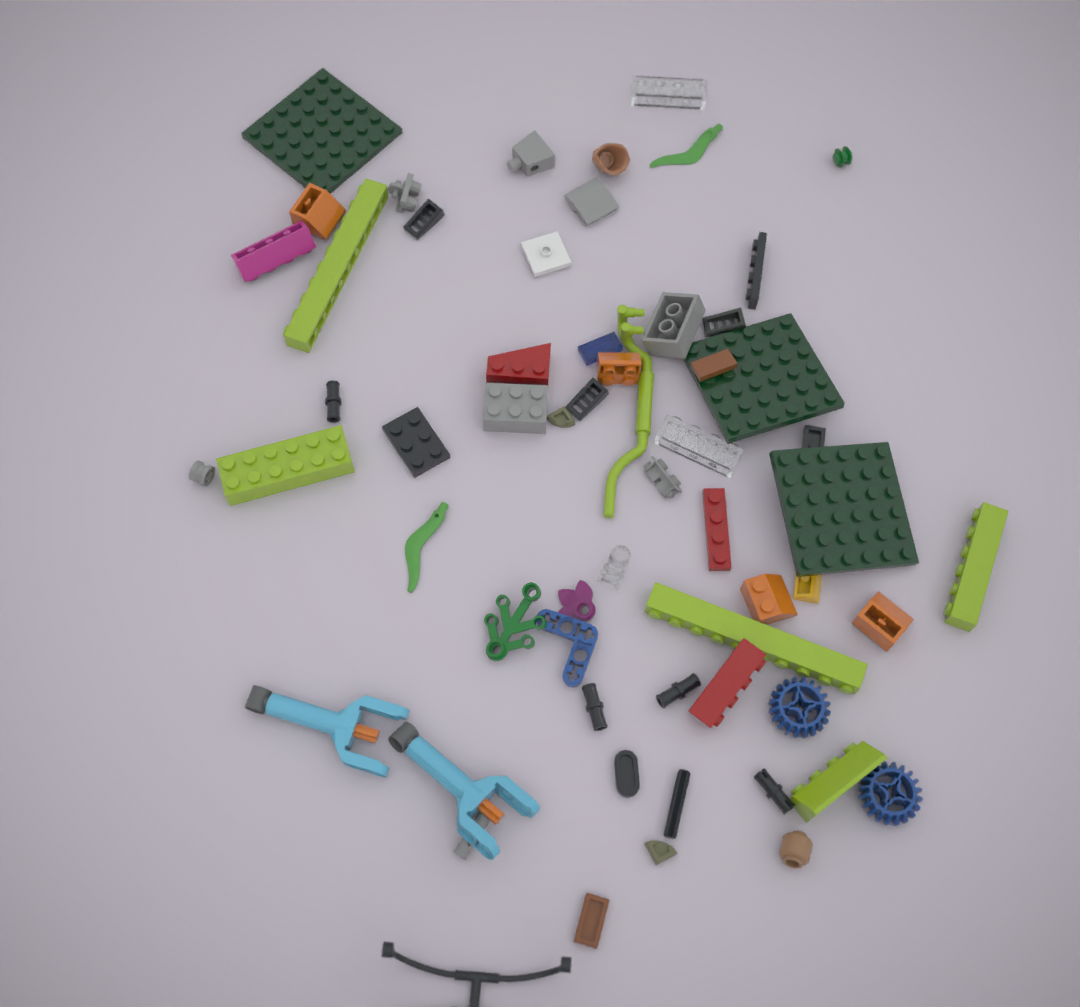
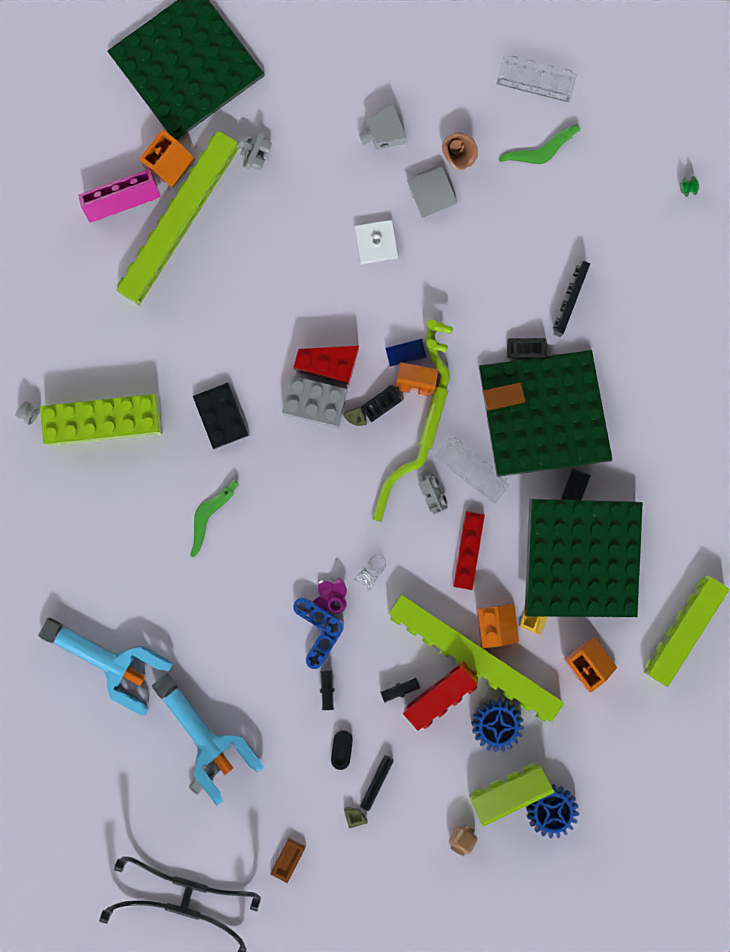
camera: 15 degrees right, 20 degrees up
(333, 401) = (153, 362): black pin -> none
(423, 210) = (271, 188): black slope -> none
(512, 624) = (271, 607): green plant -> none
(673, 325) = (477, 347): light grey brick -> none
(774, 791) = (458, 789): black pin -> none

